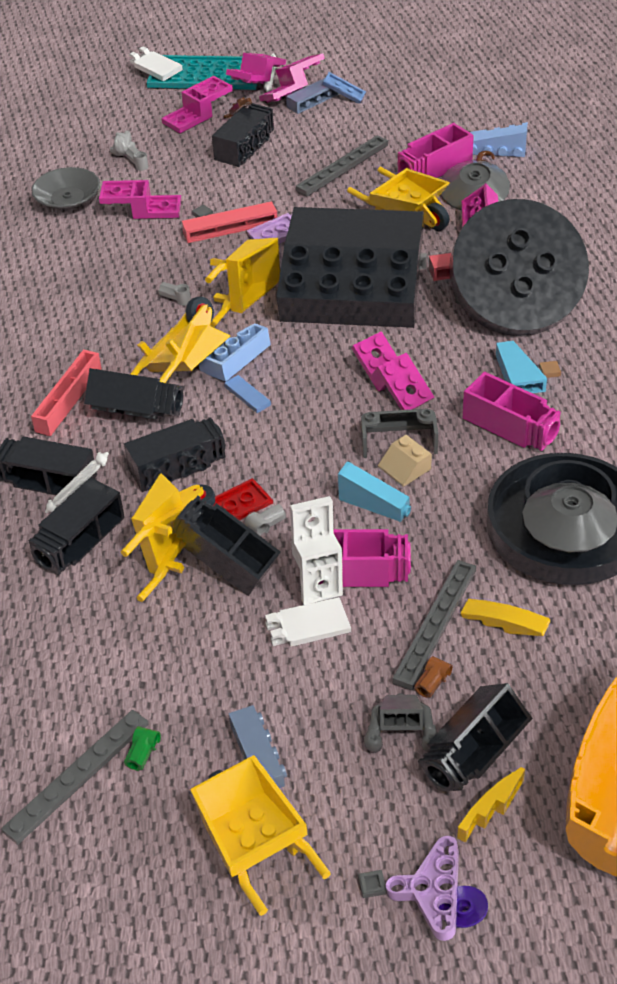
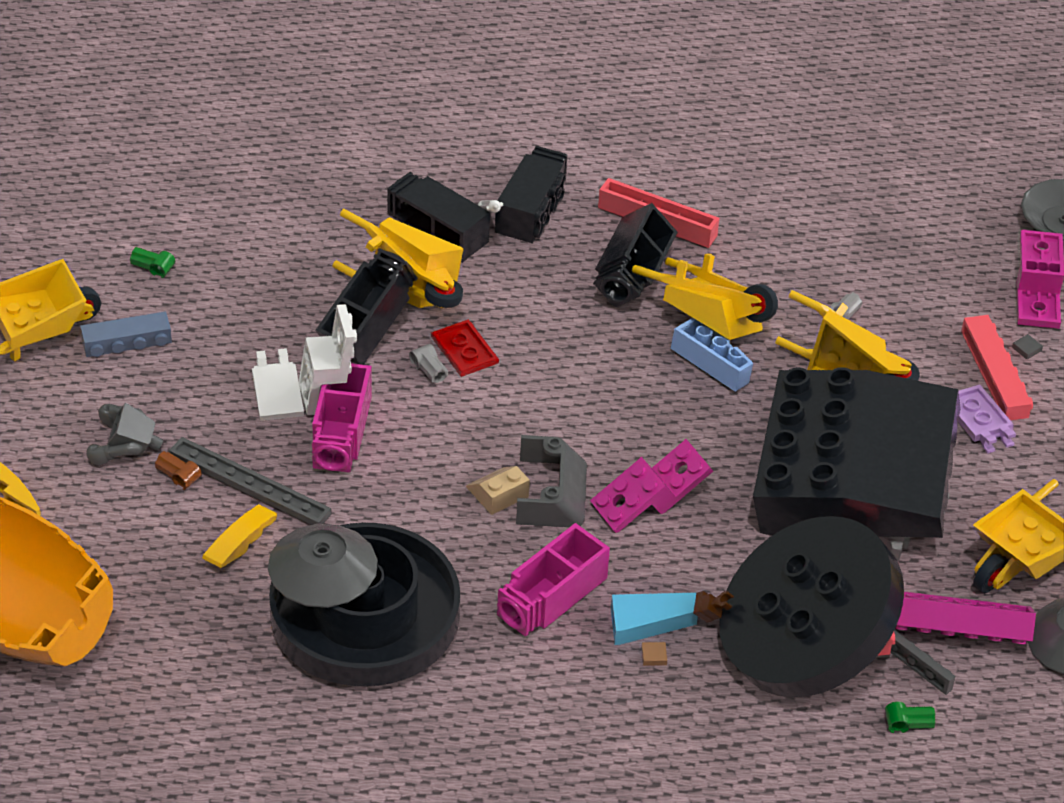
camera: 90 degrees right, 0 degrees up
(73, 778) = (138, 222): dark grey plate -> none
(174, 451) = (536, 289): black piece -> none
(247, 394) = (646, 366): medium blue tile -> none
(371, 493) = (444, 445): medium azure slope -> none
(474, 737) = (79, 473): black piece -> none
(511, 332) = (710, 607): none -> reddish brown piece

